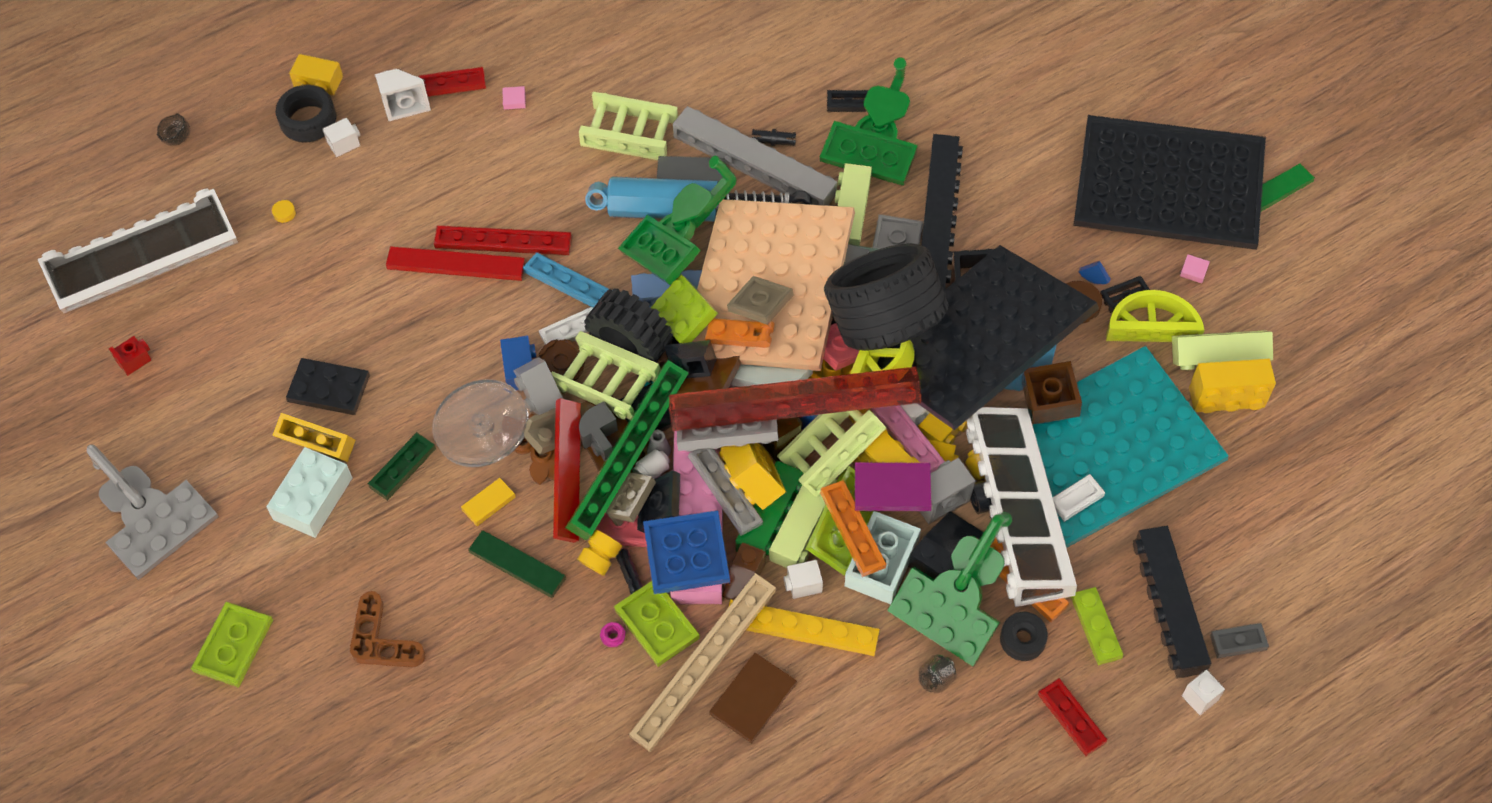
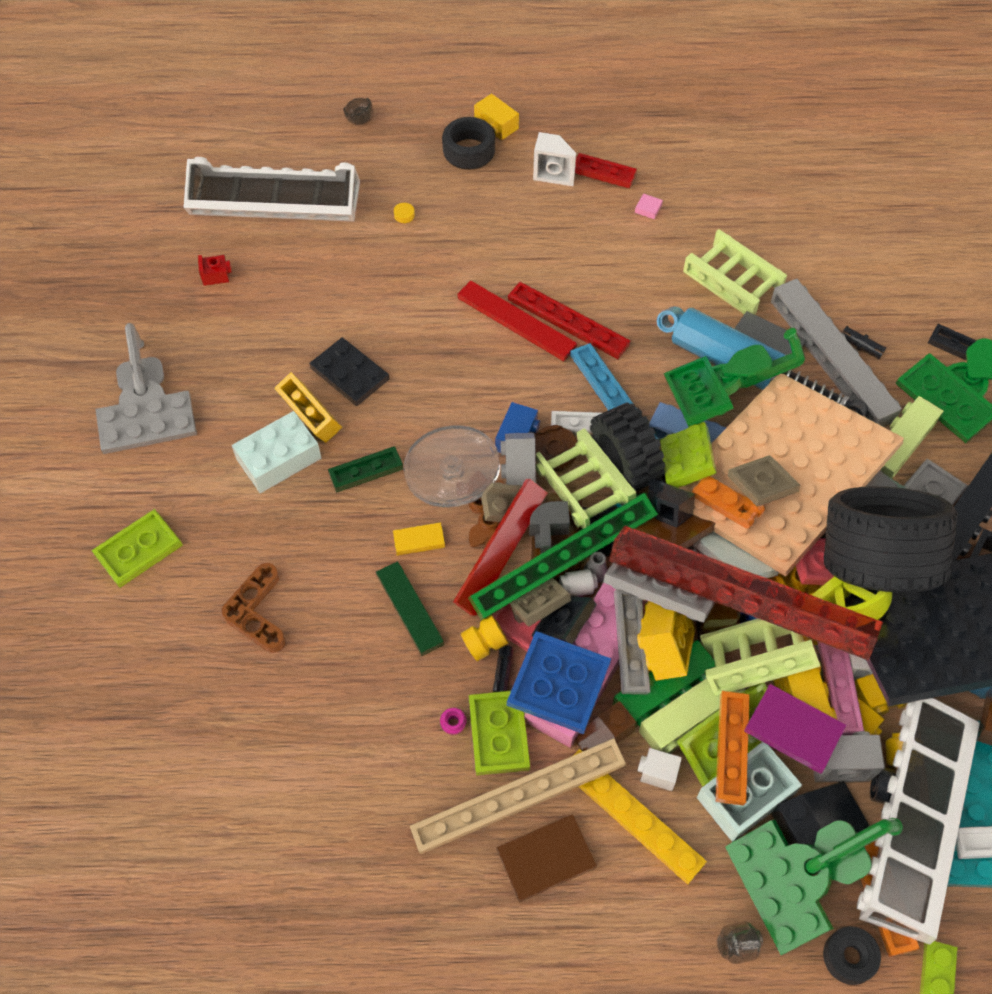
camera: 30 degrees right, 0 degrees up
(342, 137) = (486, 174): white brick -> none

